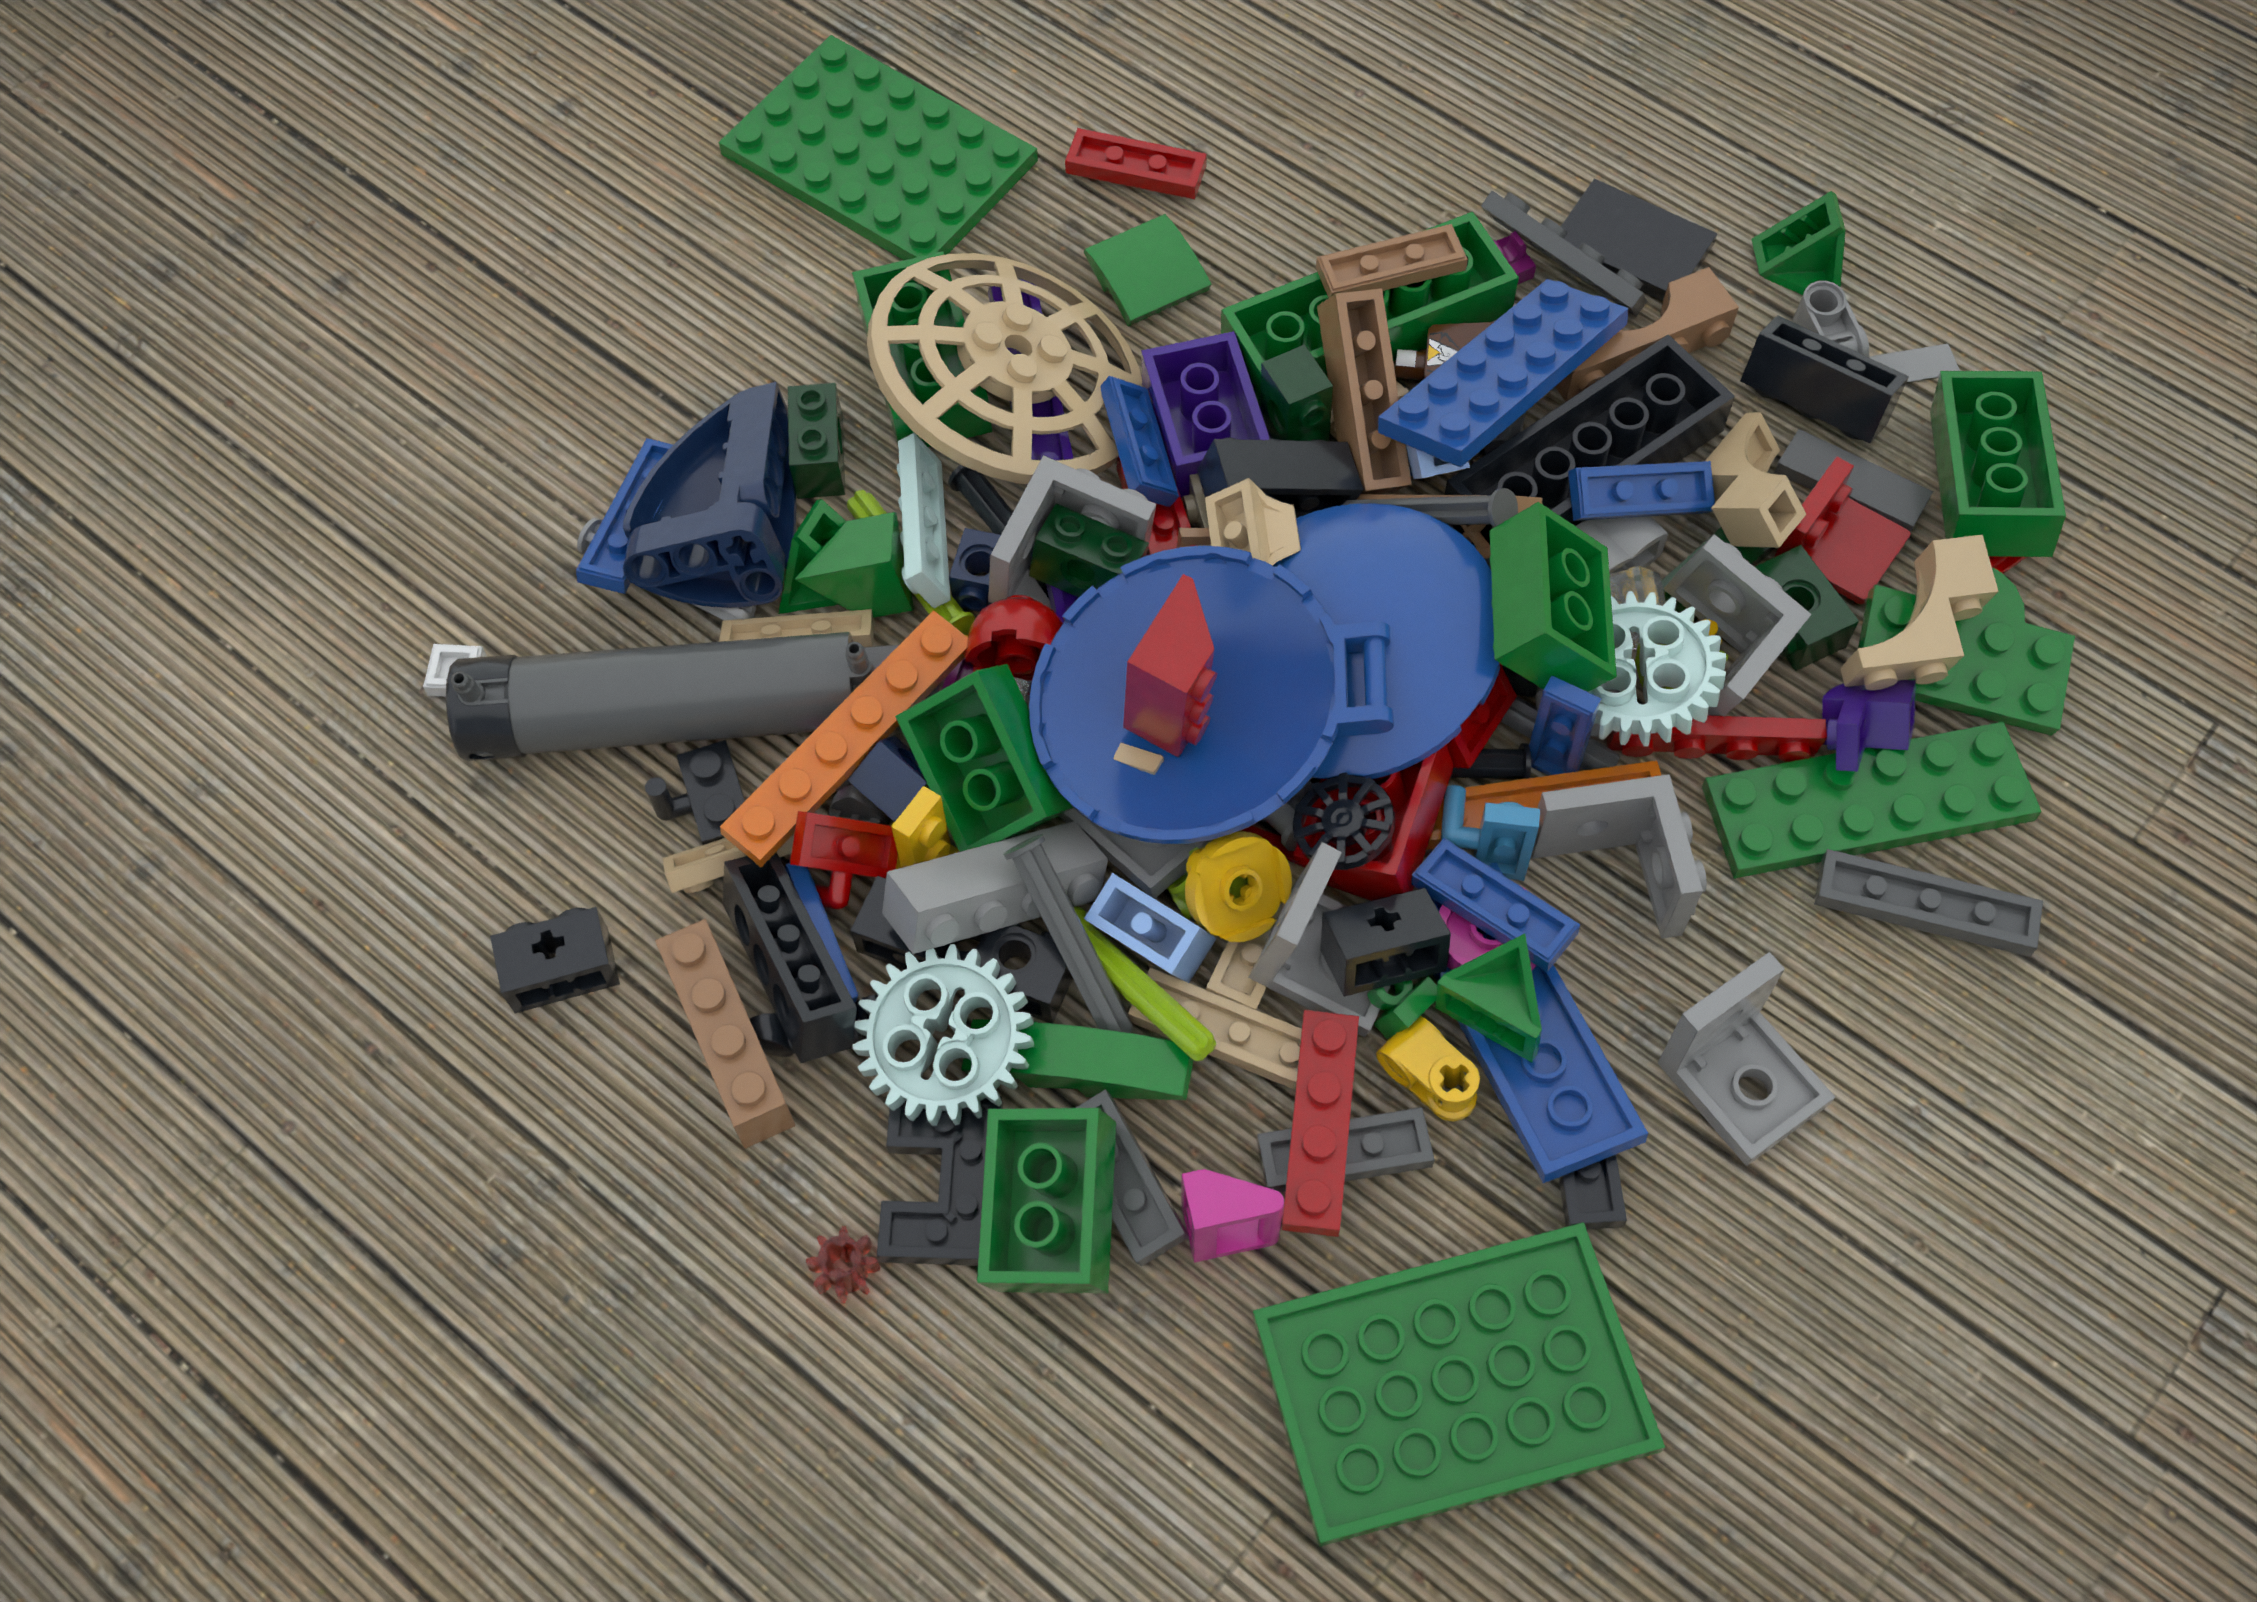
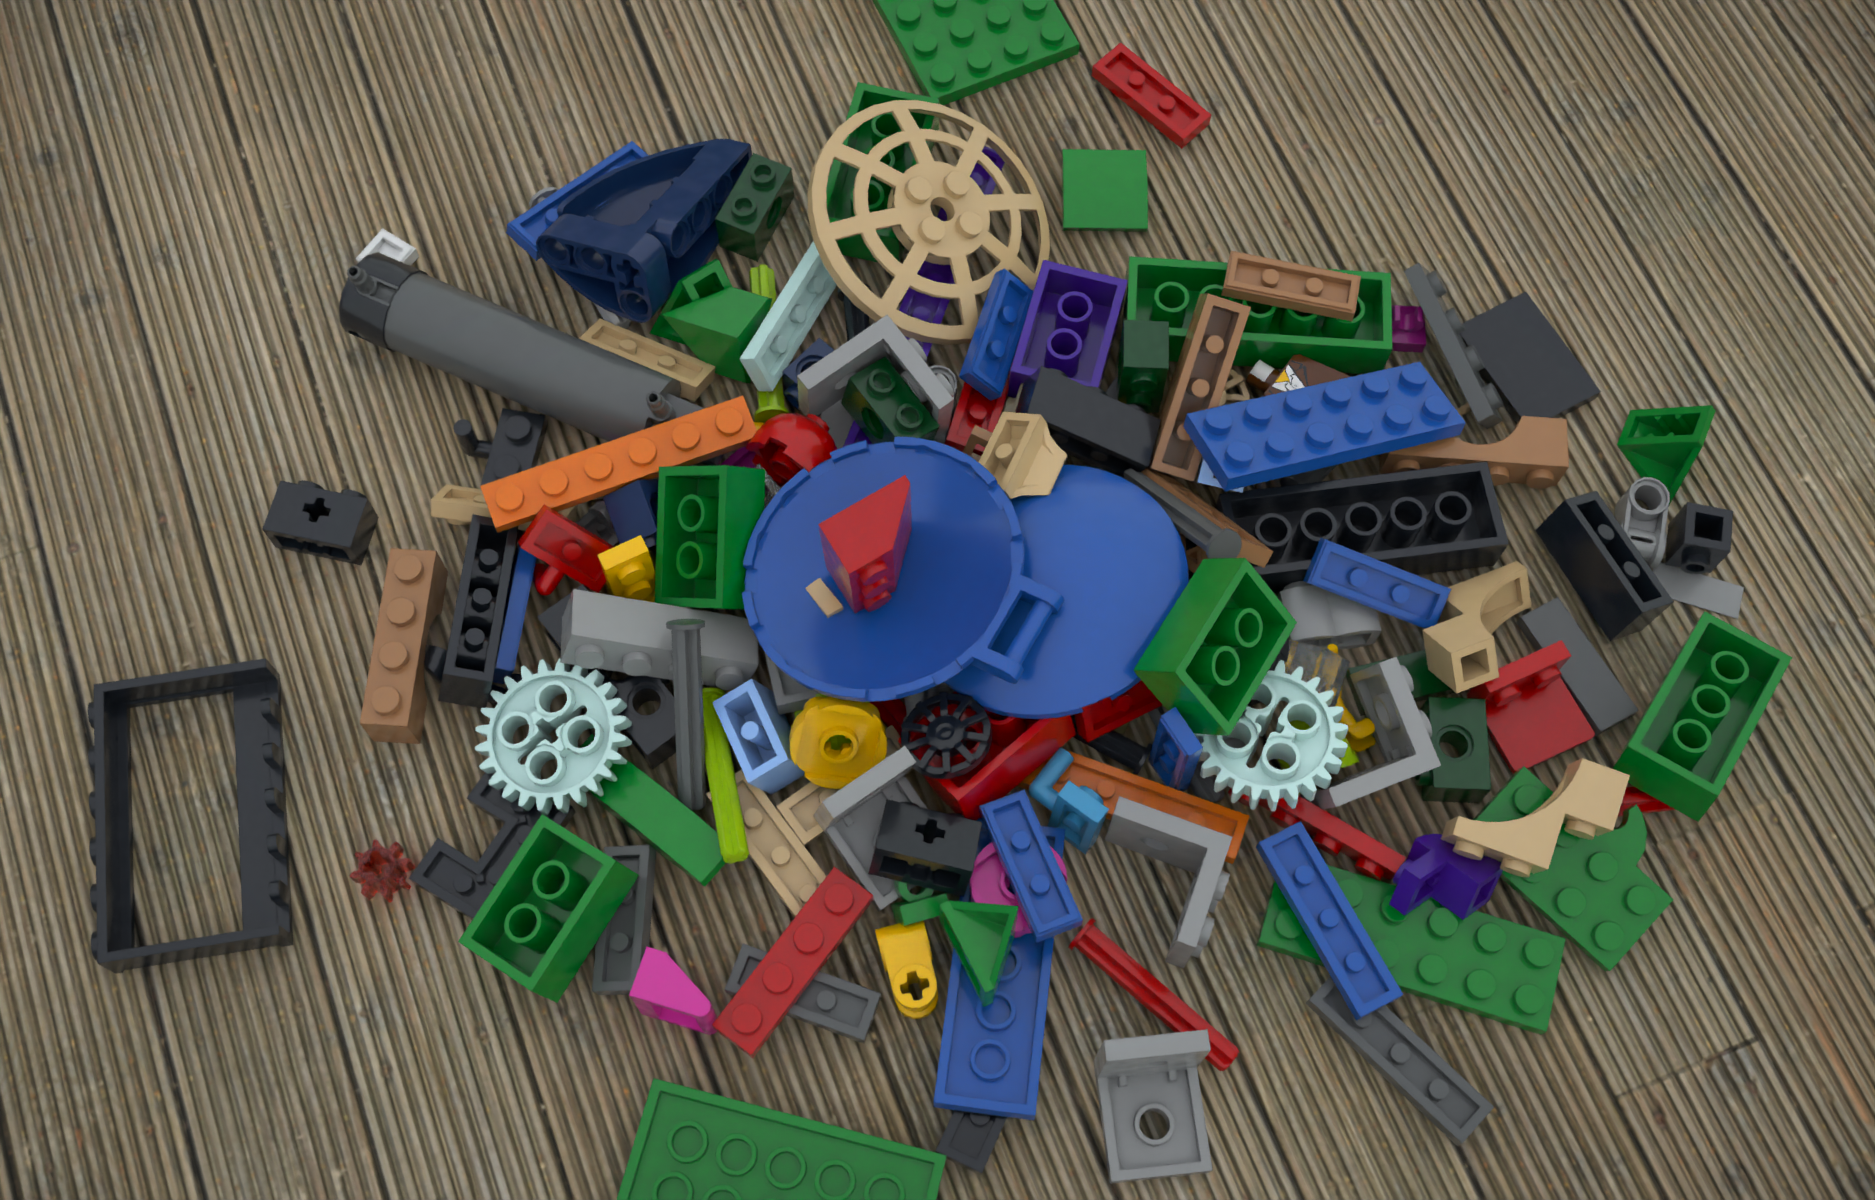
camera: 25 degrees right, 5 degrees up
(661, 1270) = (260, 813): none -> black window
(1657, 967) = (1150, 992): none -> red axle
(1794, 812) = (1329, 921): none -> blue plate
(1890, 313) = (1699, 538): none -> black brick

